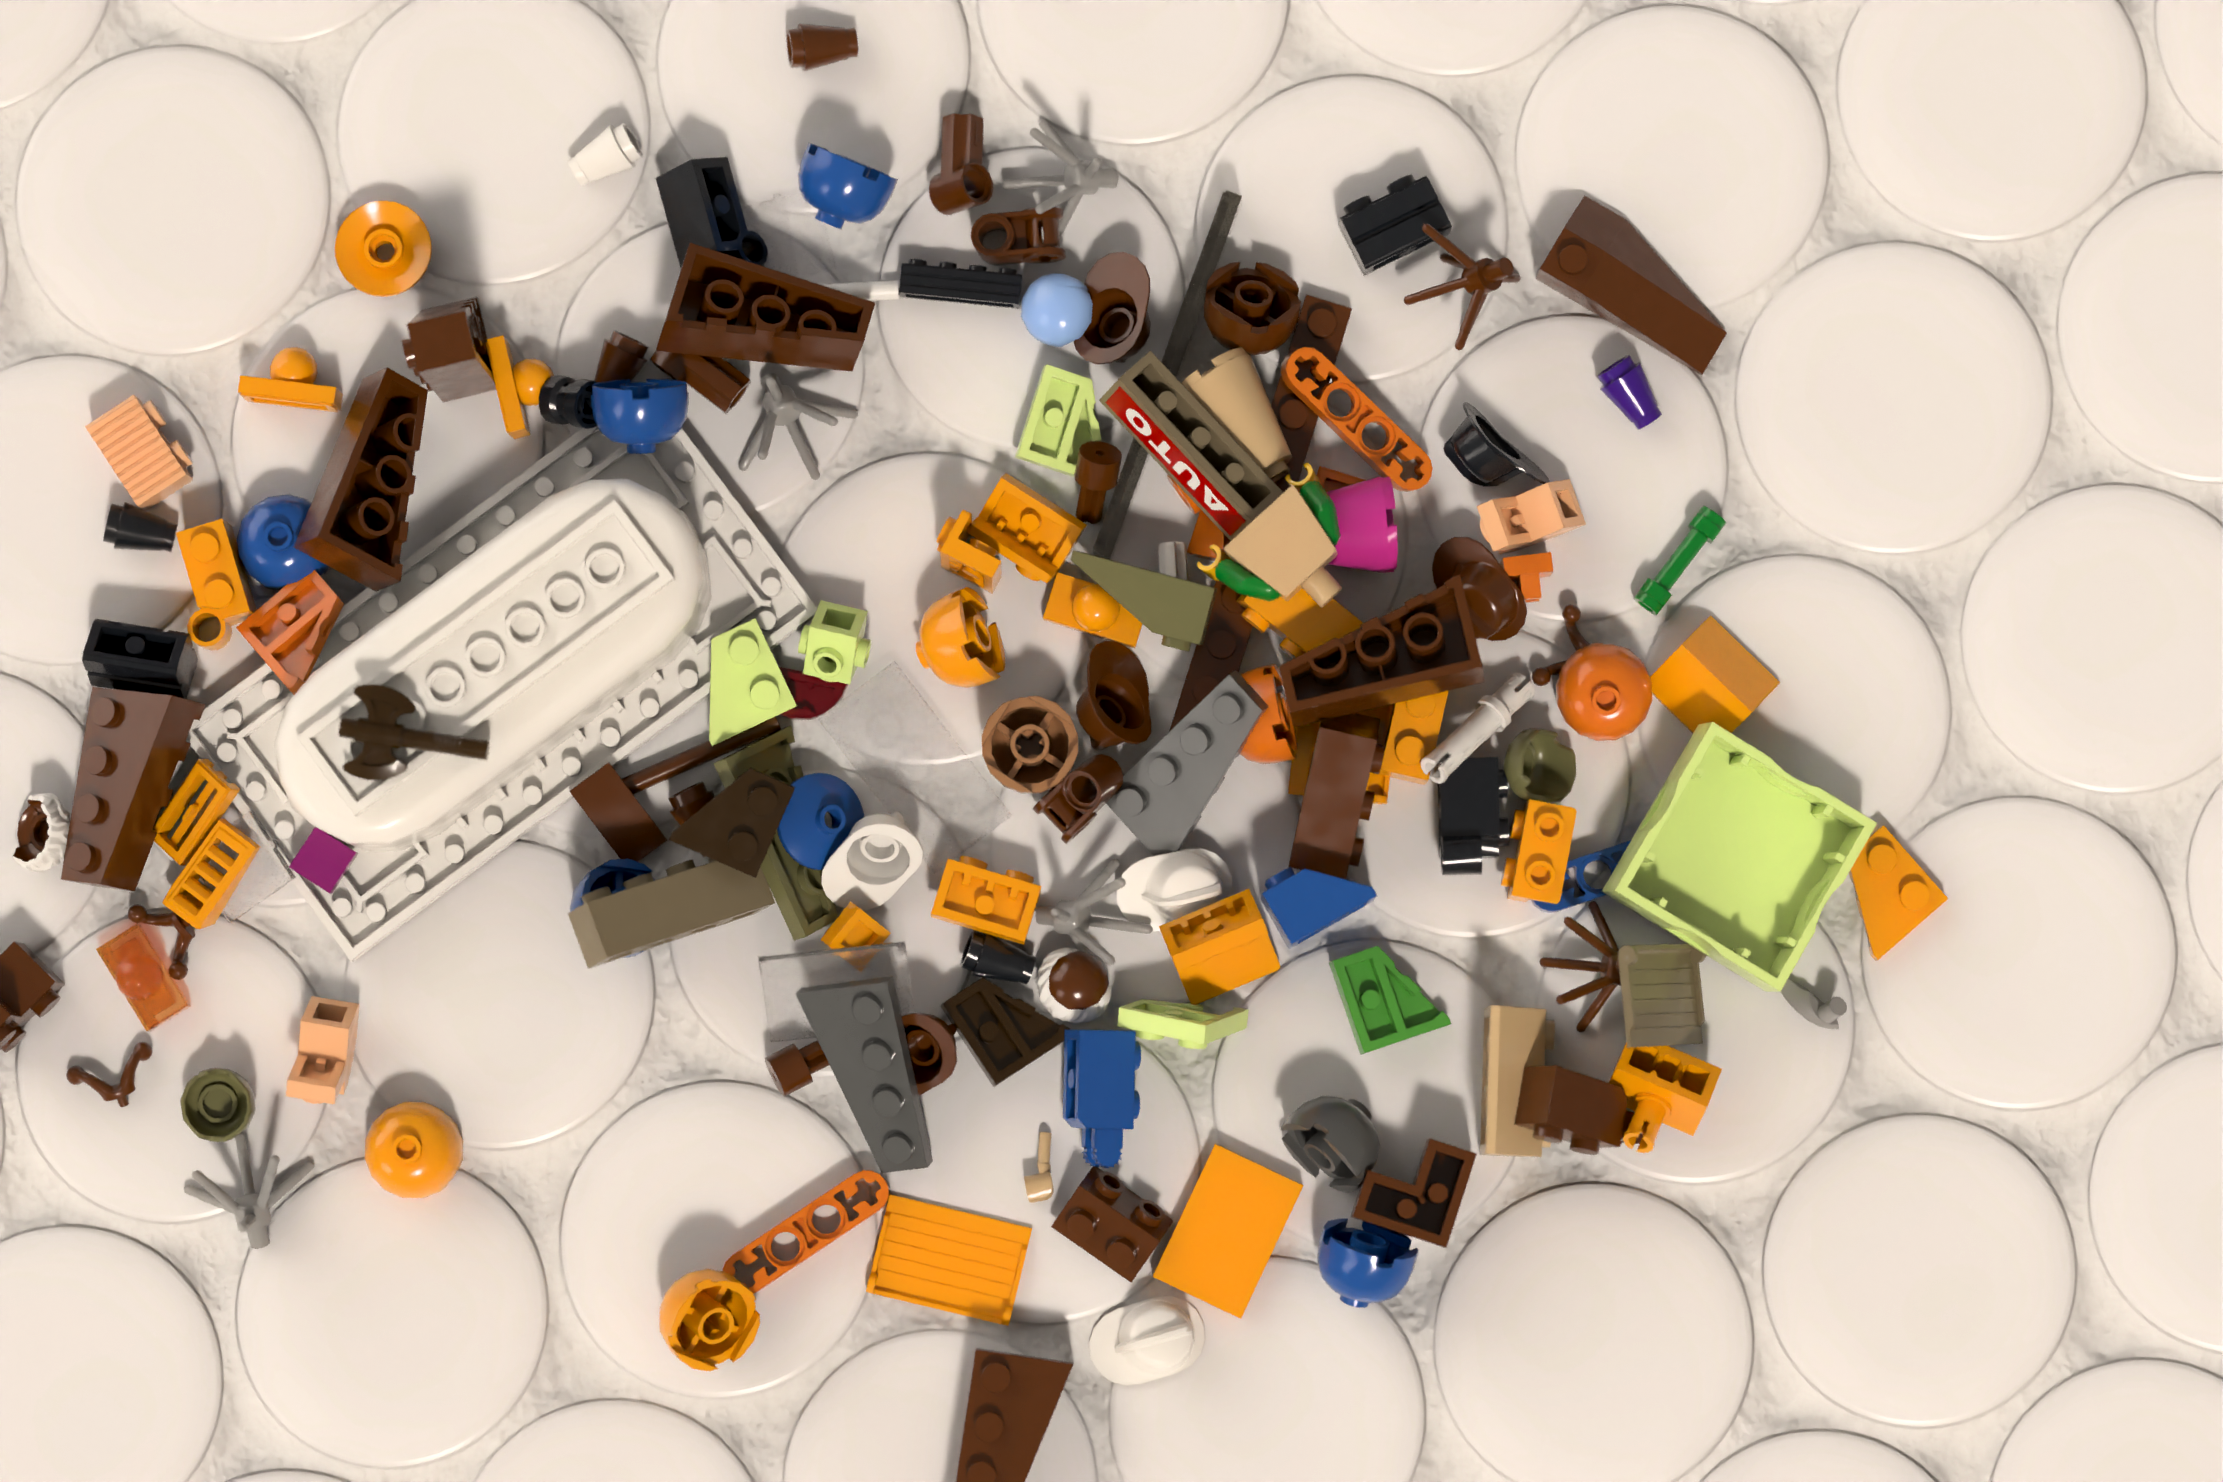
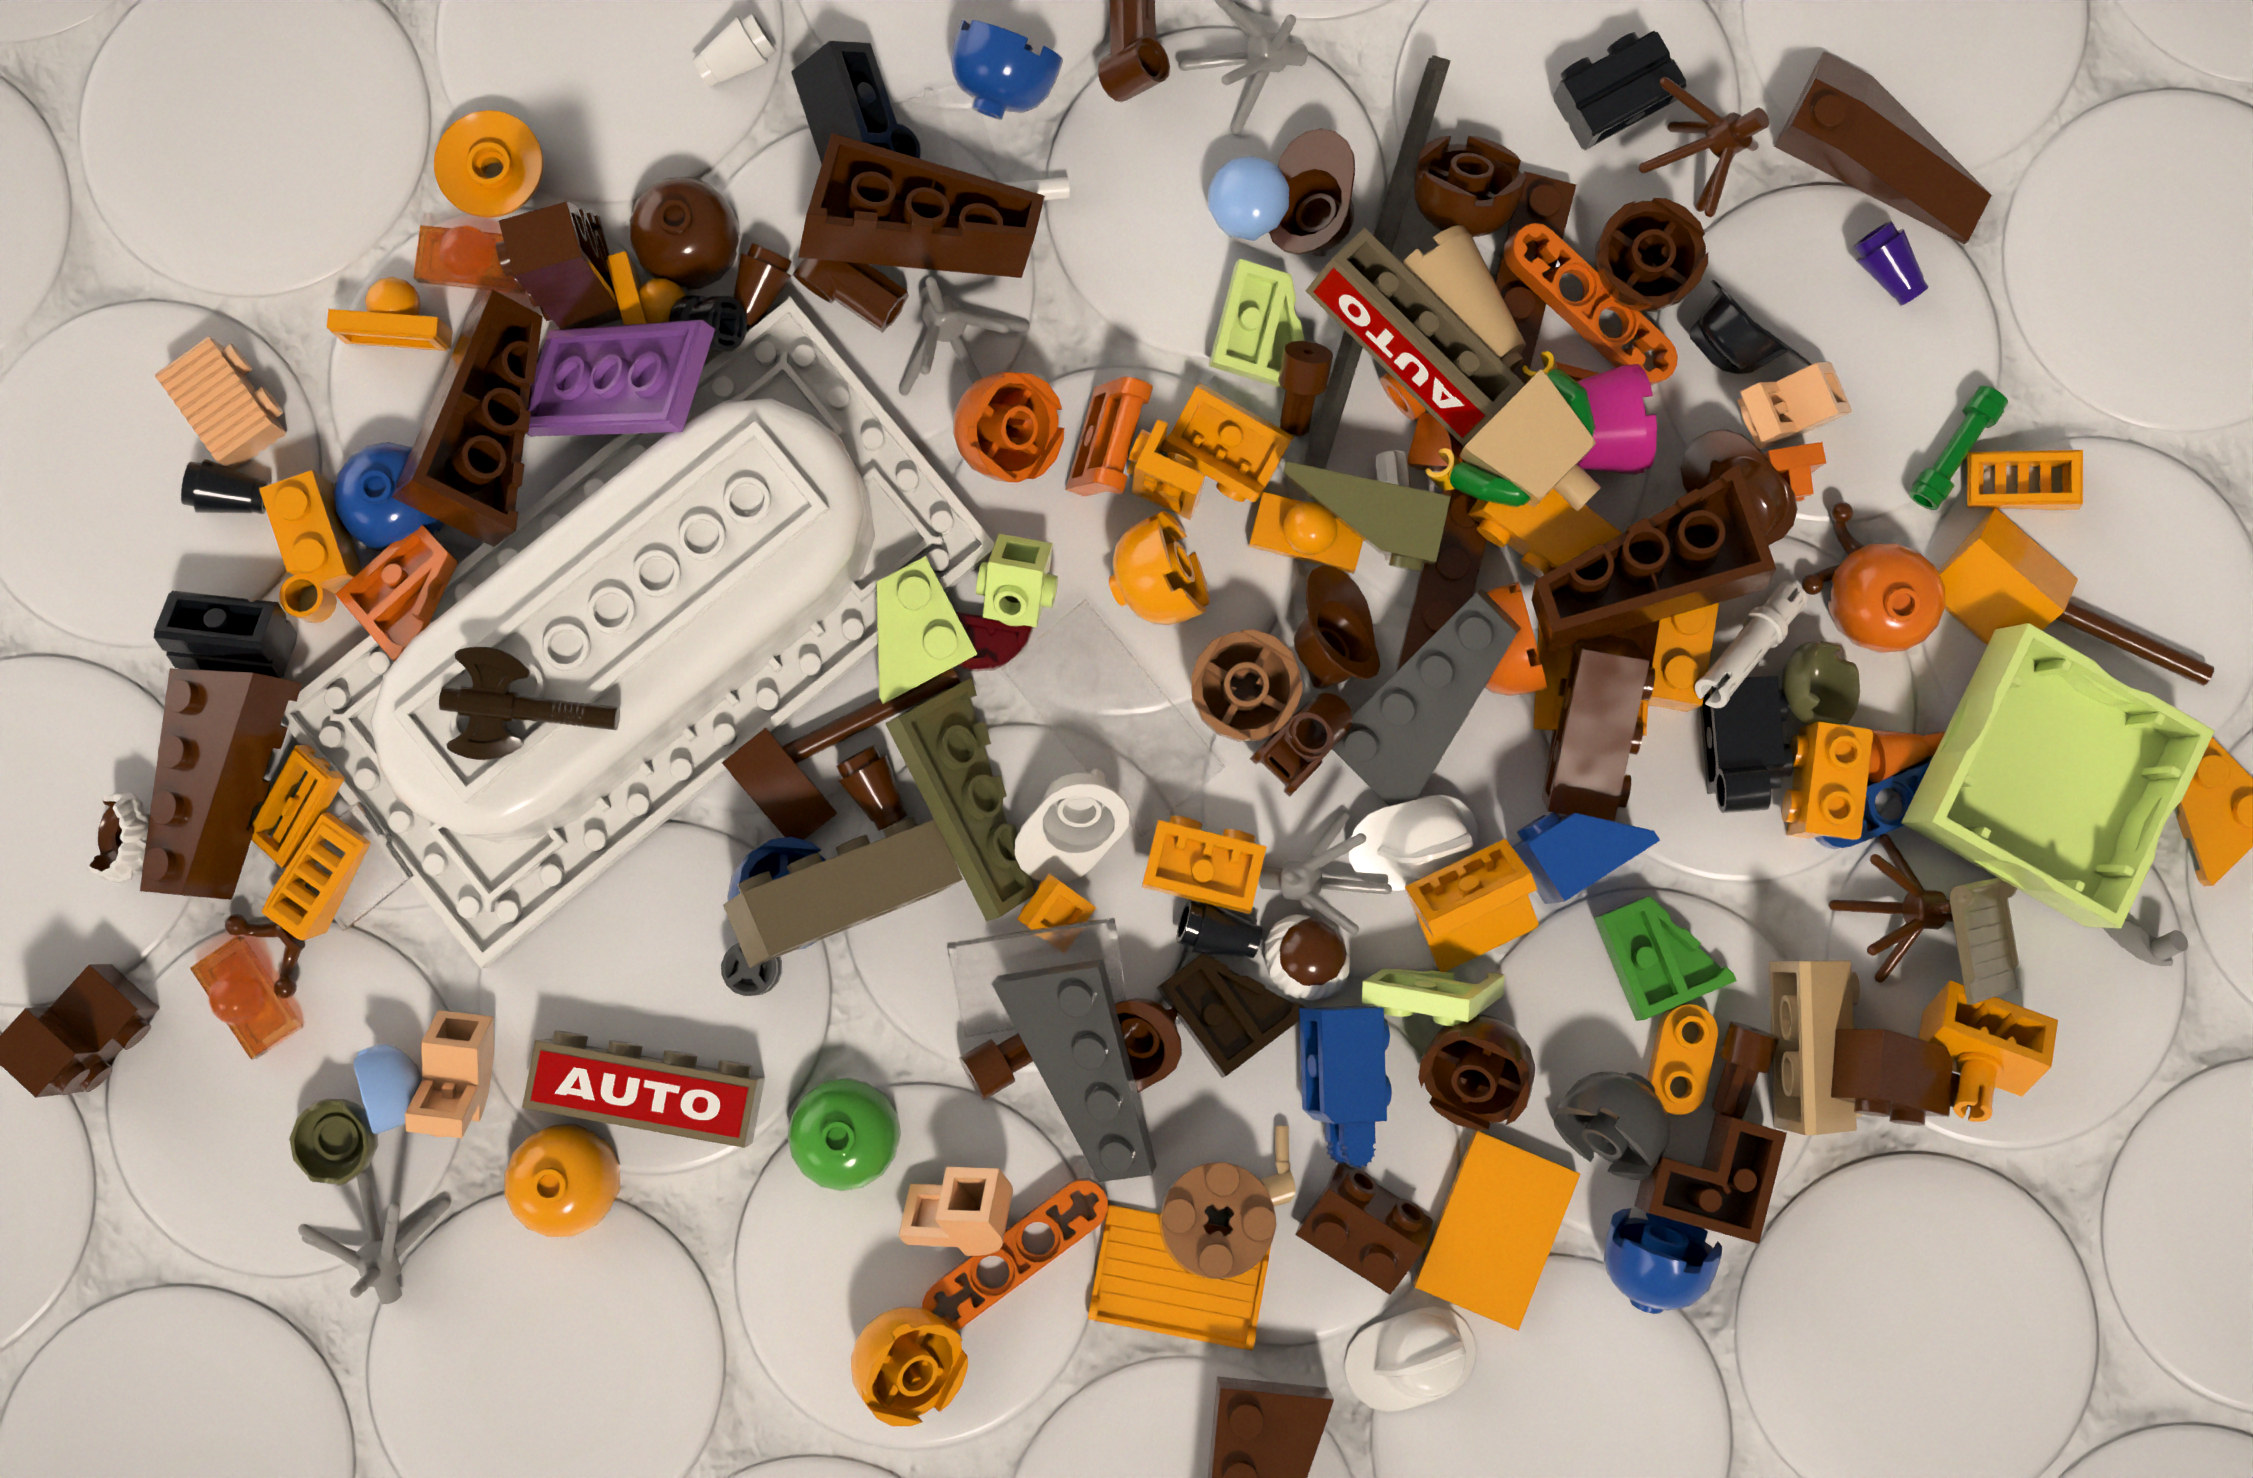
camera: 10 degrees left, 0 degrees up
(141, 1052) = (174, 1113): reddish brown piece -> none
(270, 1058) = (386, 1085): none -> light blue hair
(323, 860) = (443, 856): magenta tile -> none
(361, 331) = (461, 259): none -> clear orange tile
(489, 1075) = (644, 1091): none -> brick
(494, 451) = (618, 378): none -> medium lavender tile
(554, 317) = (684, 232): none -> reddish brown cylinder
(574, 970) = (735, 968): none -> dark grey wheel
(640, 411) = (783, 329): blue cylinder -> none
(661, 1121) = (844, 1134): none -> bright green cylinder
(738, 822) = (916, 789): dark brown wing -> none
(761, 1191) = (961, 1213): none -> light nougat brick
(803, 823) = (990, 784): blue dish -> none
(834, 506) = (1009, 426): none -> orange cylinder
(920, 519) = (1107, 437): none -> orange plate
(960, 285) = (1138, 178): black piece -> none
(985, 1181) = (1249, 1225): none -> medium nougat brick
(1023, 237) = (1206, 120): reddish brown piece -> none
(1215, 1090) = (1478, 1072): none -> reddish brown cylinder
(1400, 1090) = (1676, 1057): none -> light orange plate
(1408, 378) = (1651, 254): none -> reddish brown cylinder
(1455, 1087) = (1746, 1054): none -> reddish brown piece
(1602, 829) = (1898, 751): none -> orange cone
(1780, 592) = (2072, 479): none -> light orange slope
(1825, 740) = (2137, 643): none -> reddish brown bar

